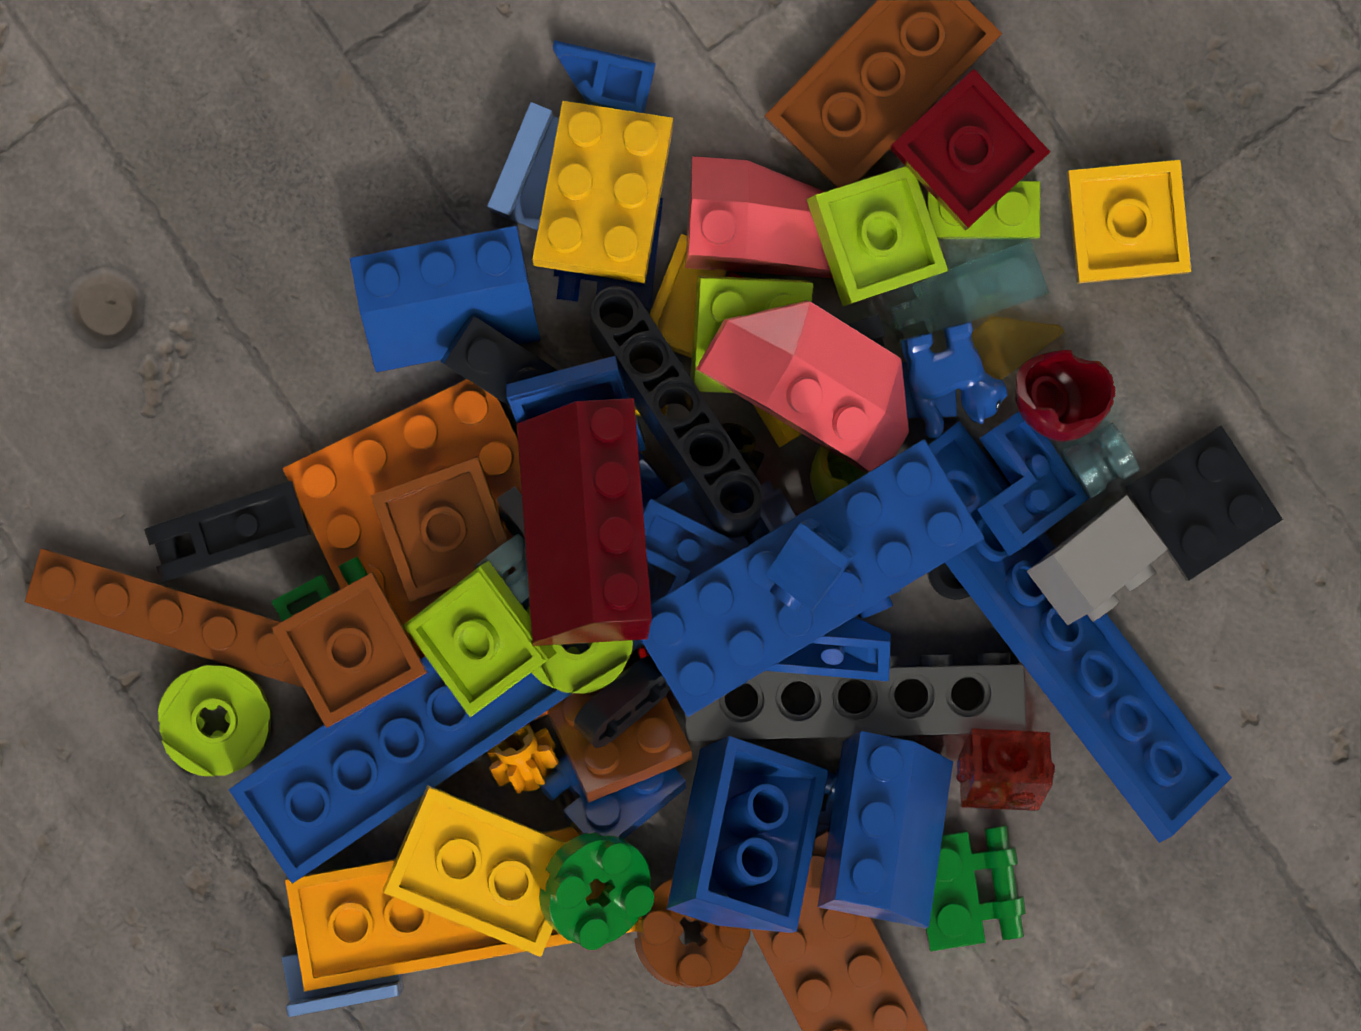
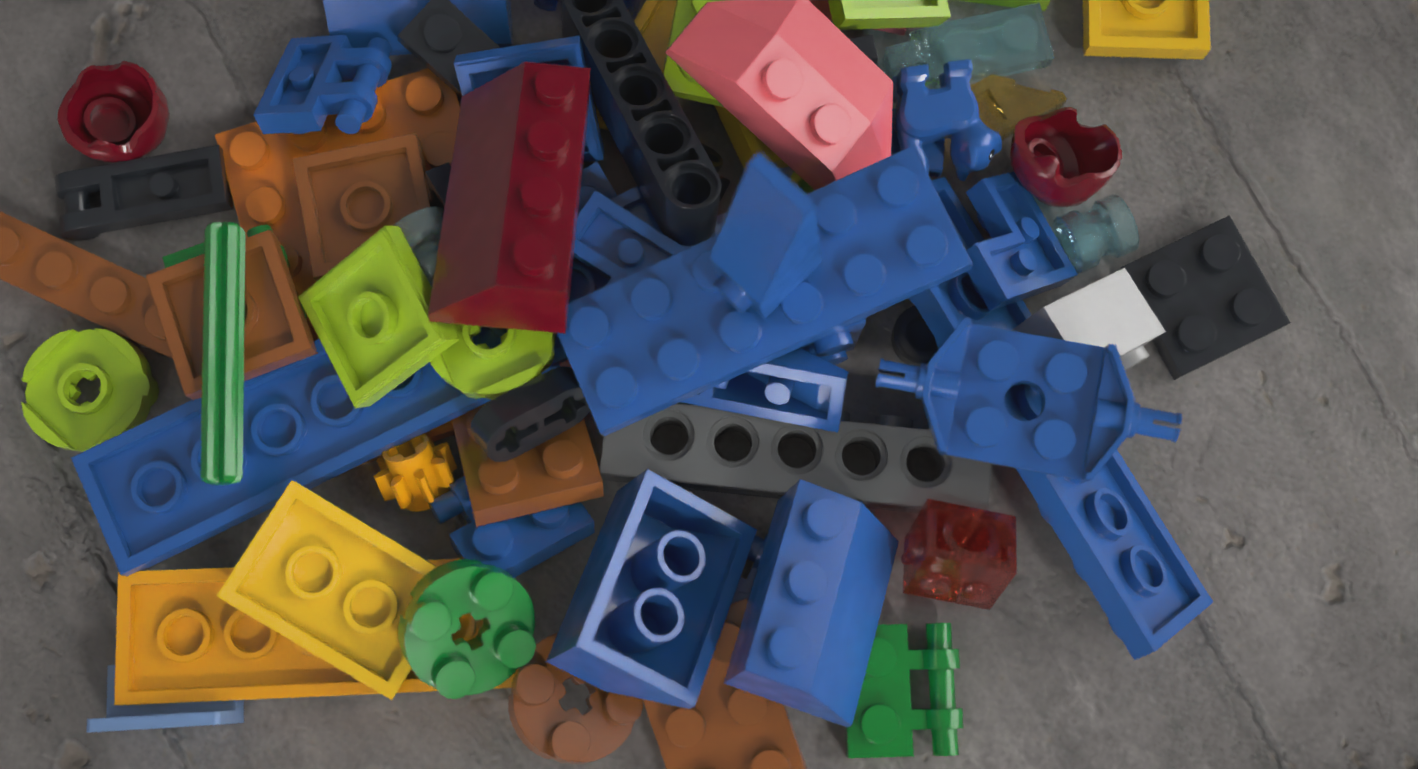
camera: 10 degrees right, 10 degrees down
(191, 465) = (114, 113): none -> dark red hair
(356, 689) = (223, 354): none -> green axle
(365, 420) = (310, 85): none -> blue plate
(1084, 669) = (1082, 392): none -> blue plate

